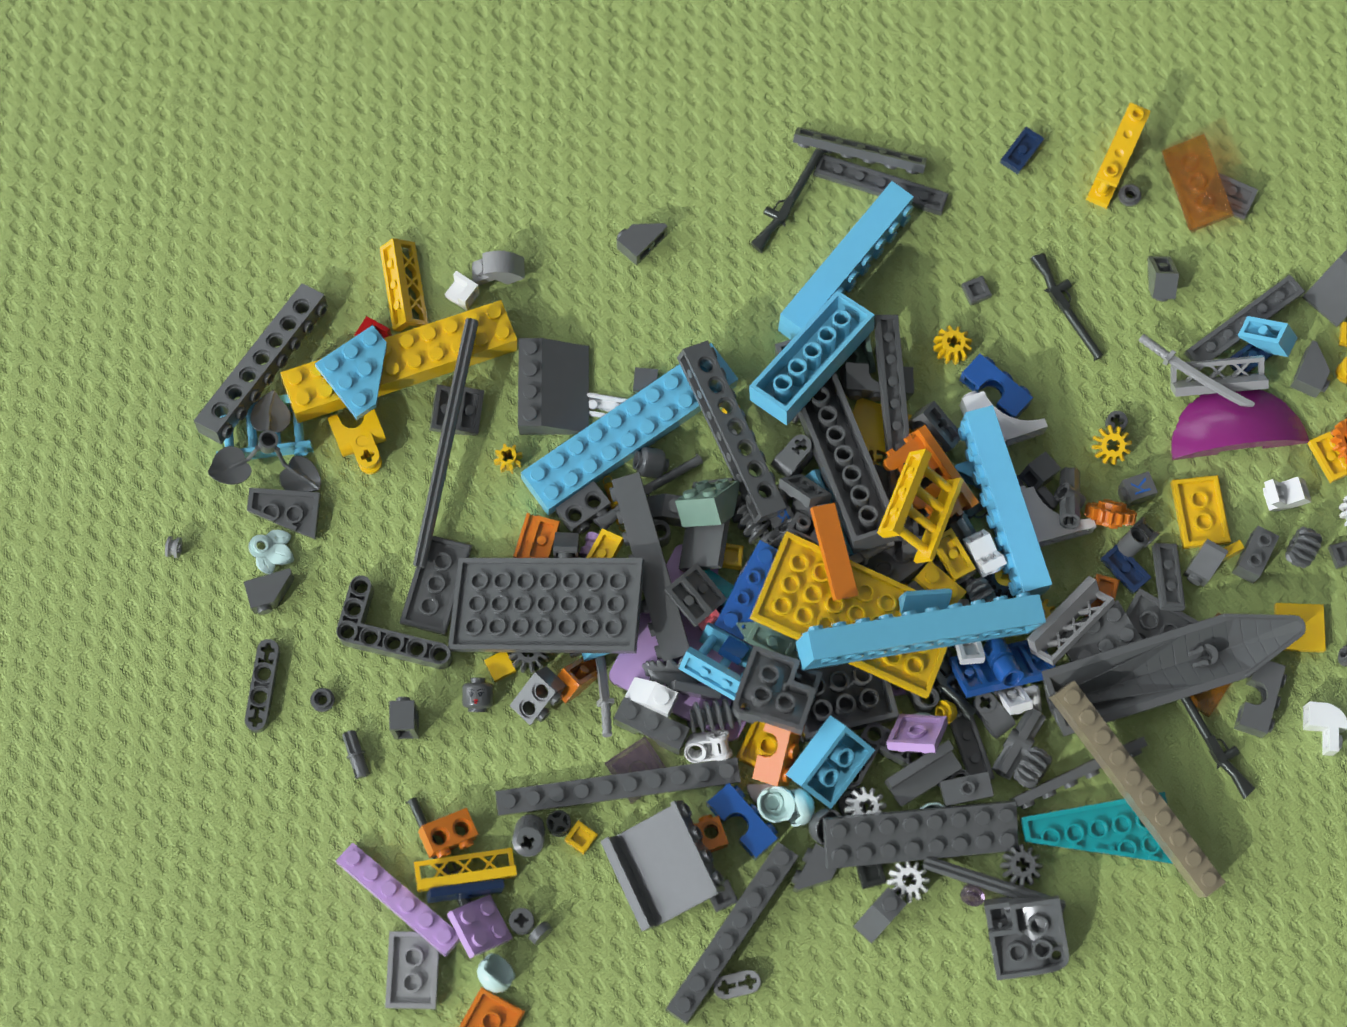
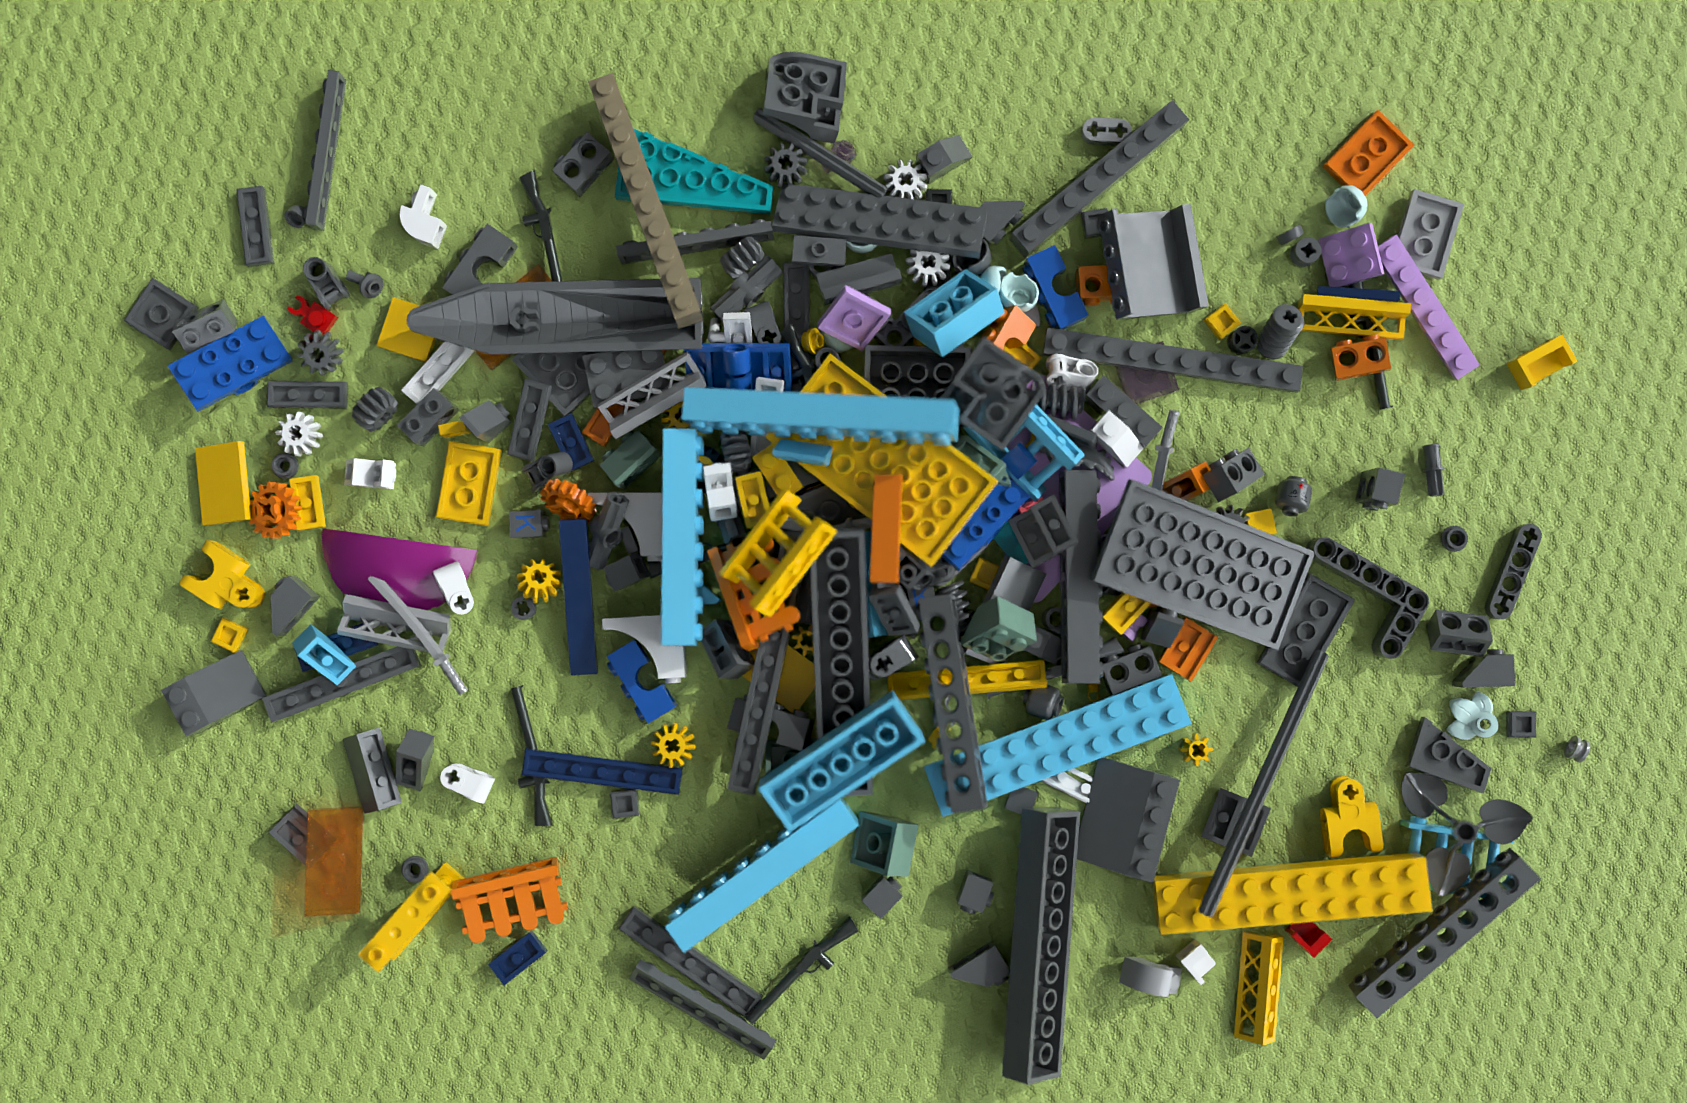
camera: 165 degrees left, 15 degrees up
(226, 557) = (1521, 724): none -> dark grey tile
(279, 880) = (1541, 362): none -> yellow panel
(300, 610) = (1459, 633): none -> dark grey brick
(356, 371) = (1348, 888): medium azure plate -> none
(599, 269) = (1041, 944): none -> dark grey brick
(663, 296) = (975, 892): none -> dark grey brick
(712, 464) = (981, 679): none -> yellow tile
(740, 273) = (882, 895): none -> dark grey brick
(750, 313) = (884, 844): none -> sand green slope
(1004, 309) = (601, 771): none -> dark blue tile
(1054, 201) = (493, 885): none -> orange fence
(1071, 564) = (629, 459): none -> sand green slope
(1074, 440) = (578, 596): none -> dark blue tile
(1110, 271) = (472, 783): none -> white piece
(1181, 420) = (453, 584): none -> white piece
(1192, 260) = (372, 770): none -> dark grey panel
(1198, 812) = (588, 168): none -> dark grey brick
(1265, 590) = (437, 370): none -> white plate

